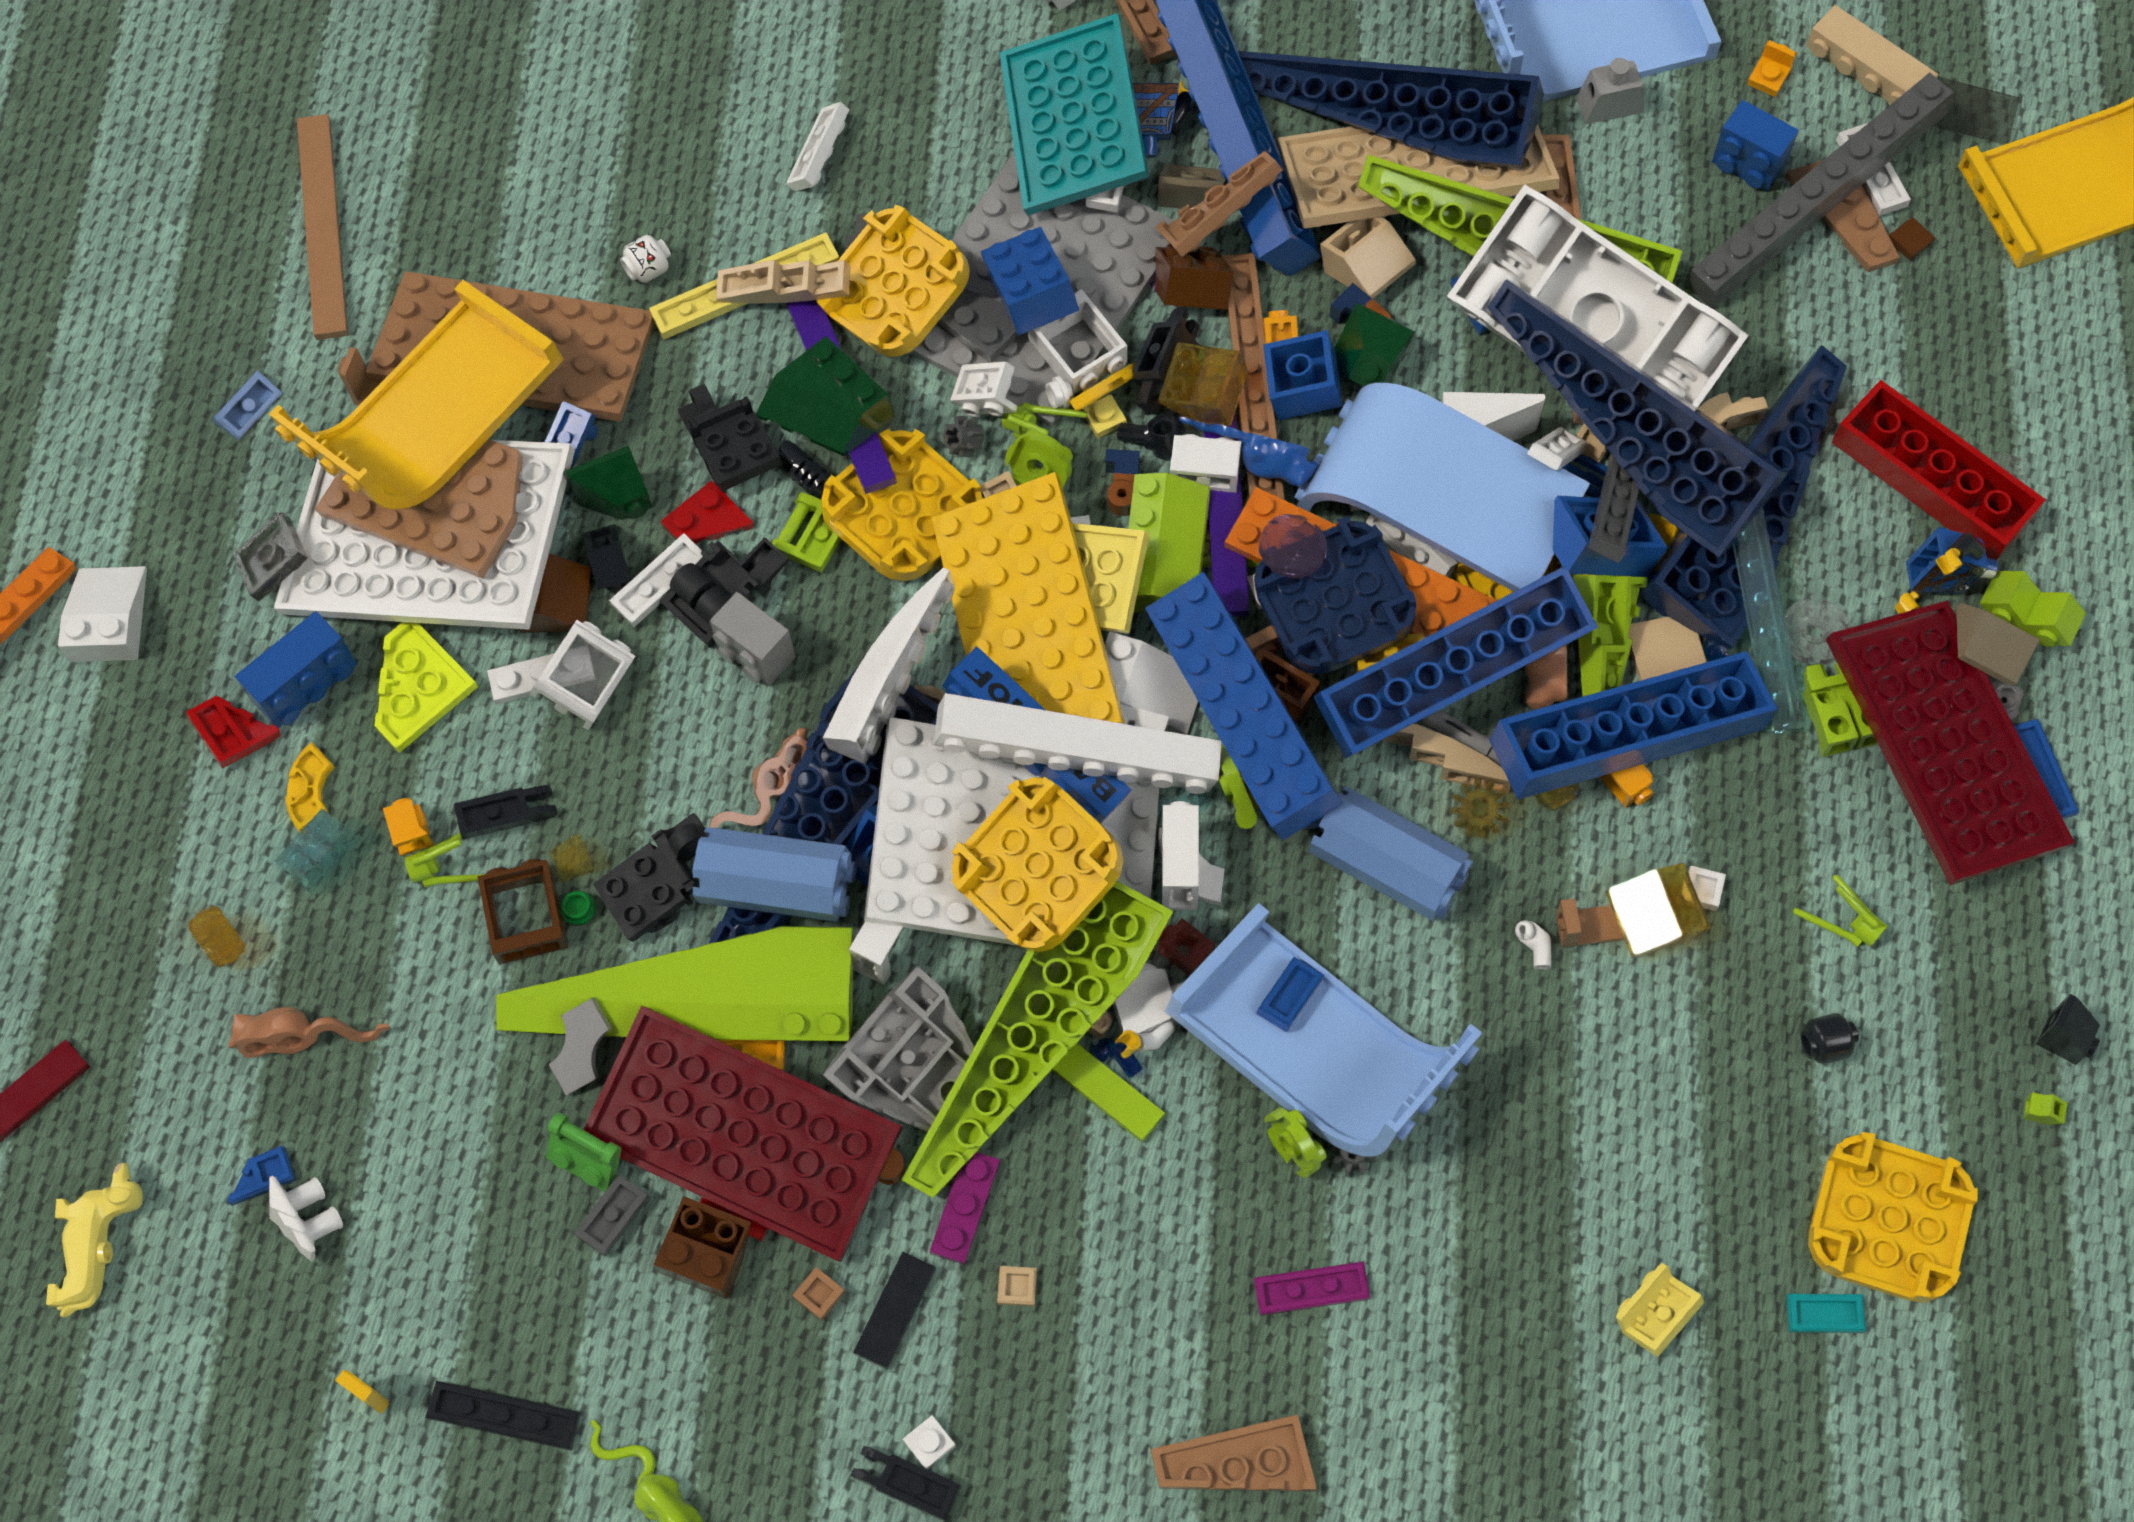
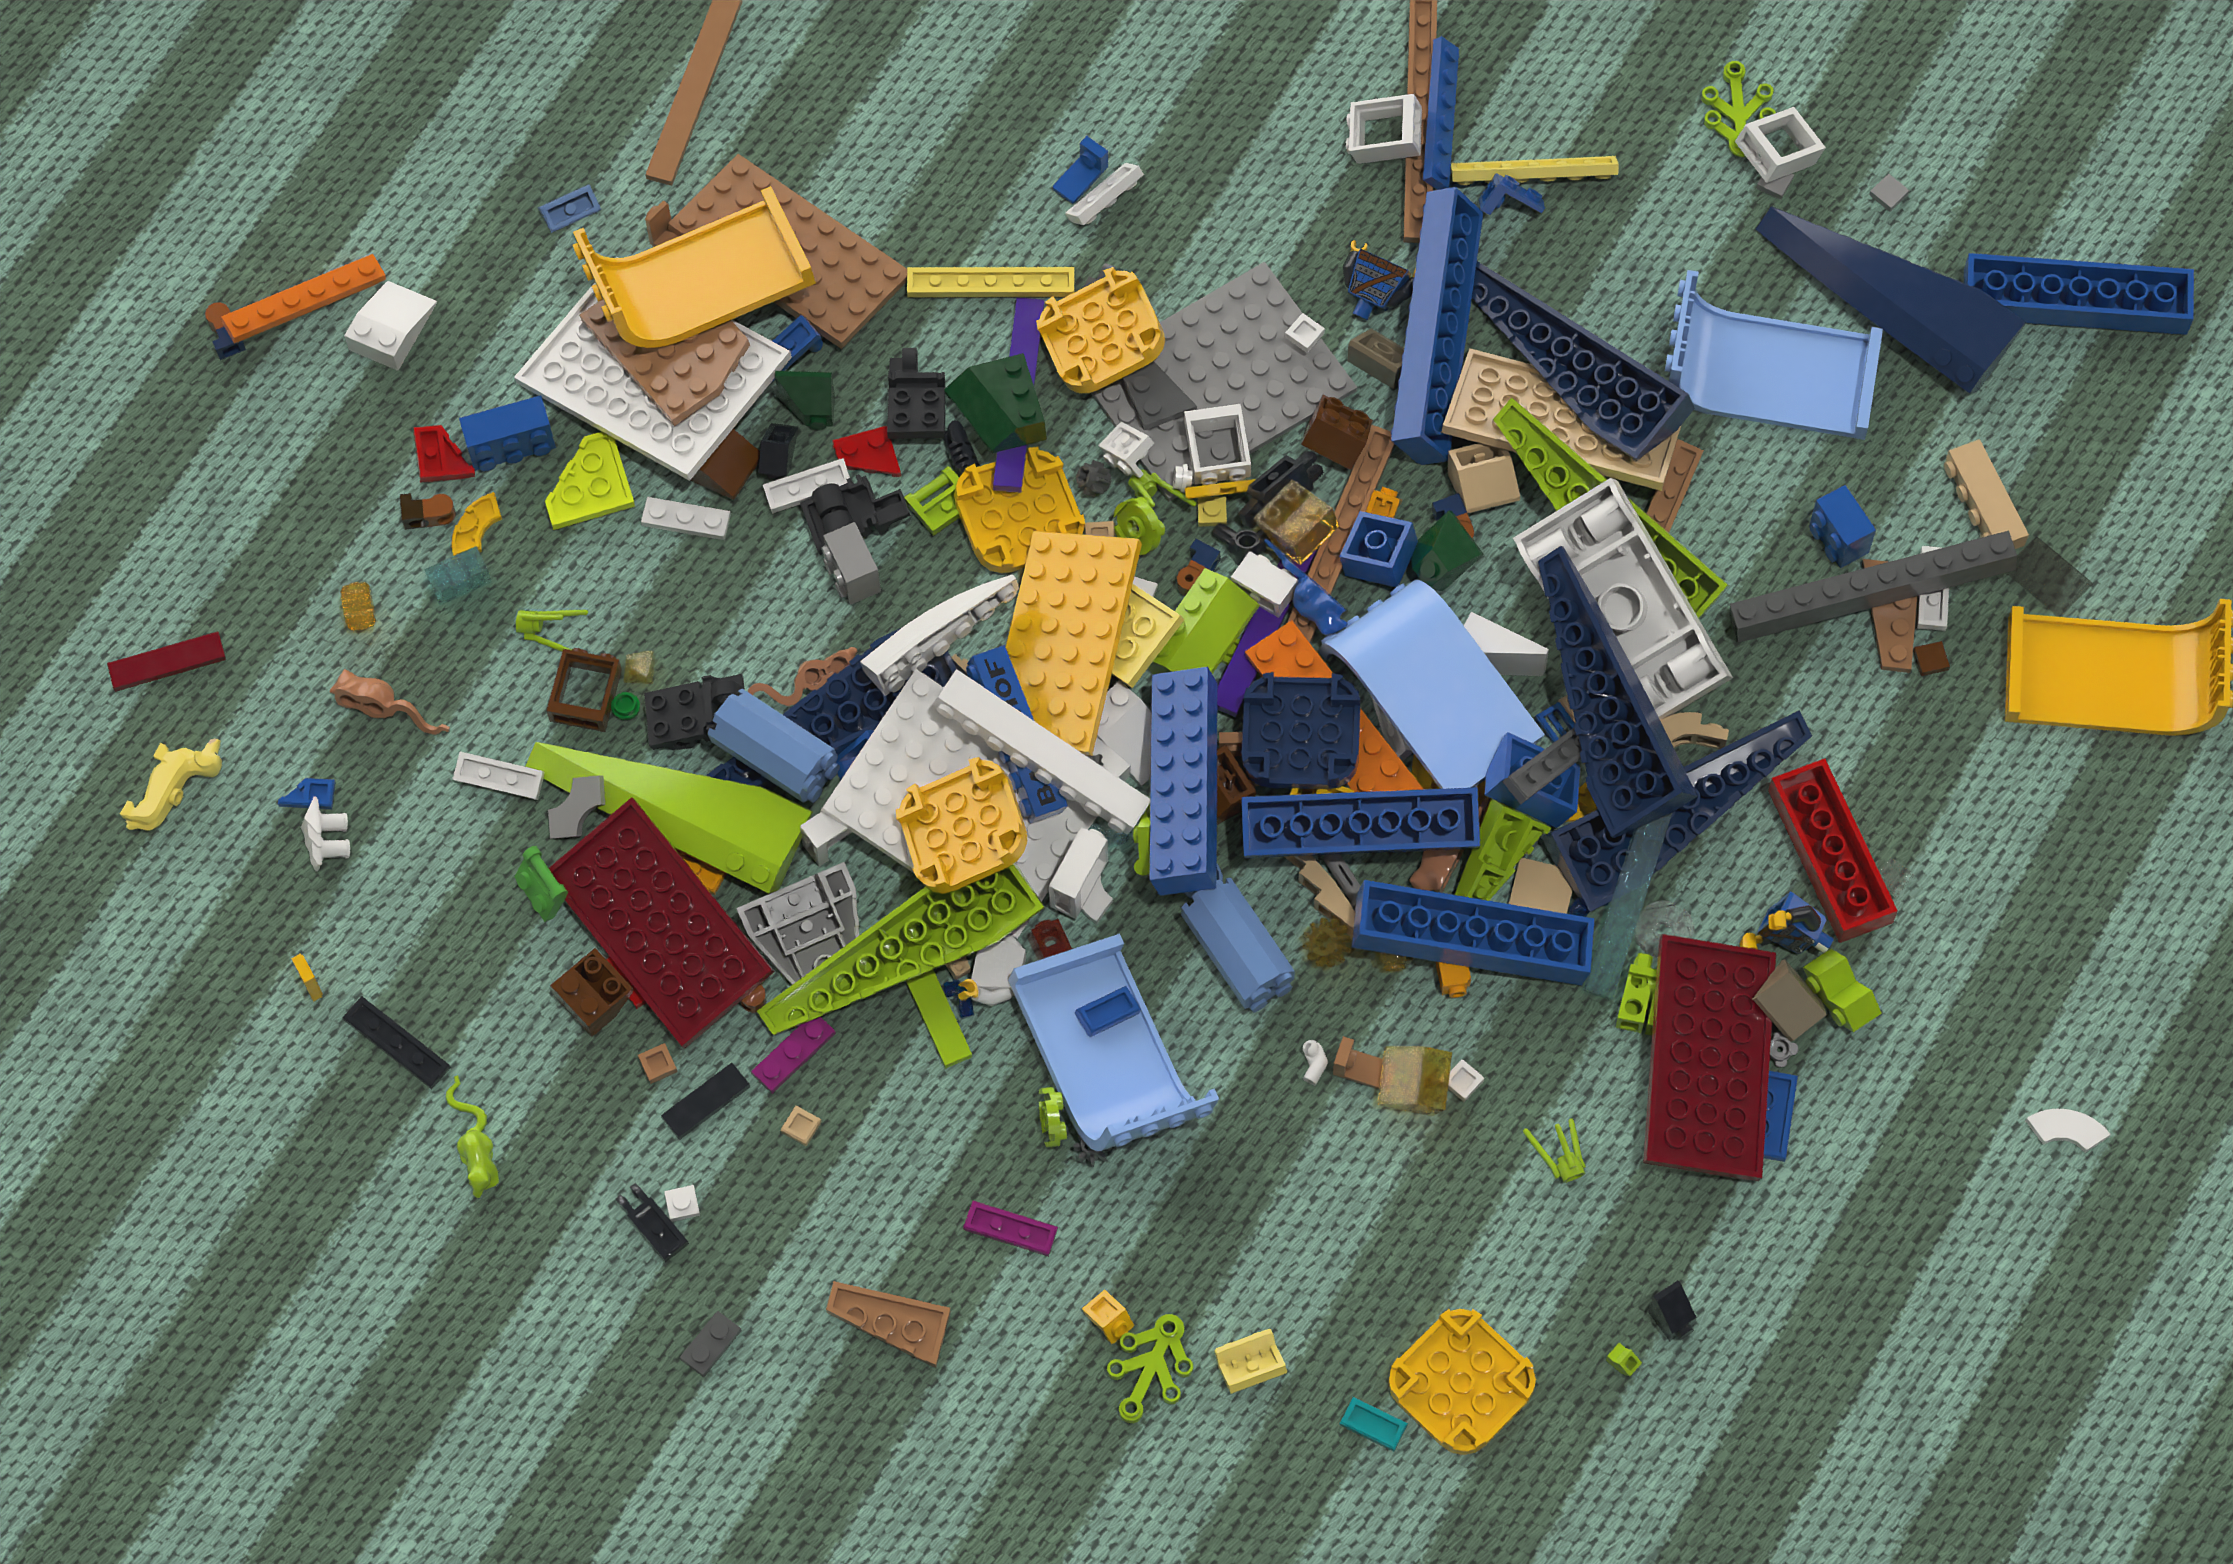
camera: 25 degrees right, 0 degrees up
(246, 797) = (426, 512): none -> leg
(270, 556) = (529, 336): clear smoke plate -> none
(407, 826) = (532, 588): light orange window -> none
(472, 1052) = (498, 775): none -> white plate
(502, 811) = (606, 608): black hinge -> none
(584, 672) = (715, 531): window -> none
(612, 1215) = (540, 939): dark grey plate -> none
(645, 259) = (924, 226): white head -> none
(783, 283) = (1016, 294): tan slope -> none
(784, 132) = (1083, 172): none -> blue bracket
(1030, 280) = (1202, 379): blue brick -> none
(1073, 115) = (1311, 258): teal plate -> none
(1219, 203) = (1385, 382): medium nougat wing -> none
(1292, 546) = (1287, 678): clear purple tile -> none
(1475, 1335) = (1108, 1316): none -> yellow bracket
(1553, 1364) = (1153, 1363): none -> lime plant
(1557, 448) = (1537, 696): white tile -> none
(1611, 92) = (1757, 431): light grey torso -> none
(1772, 68) = (1902, 469): light orange bracket -> none
(1829, 1038) = (1490, 1232): black head -> none

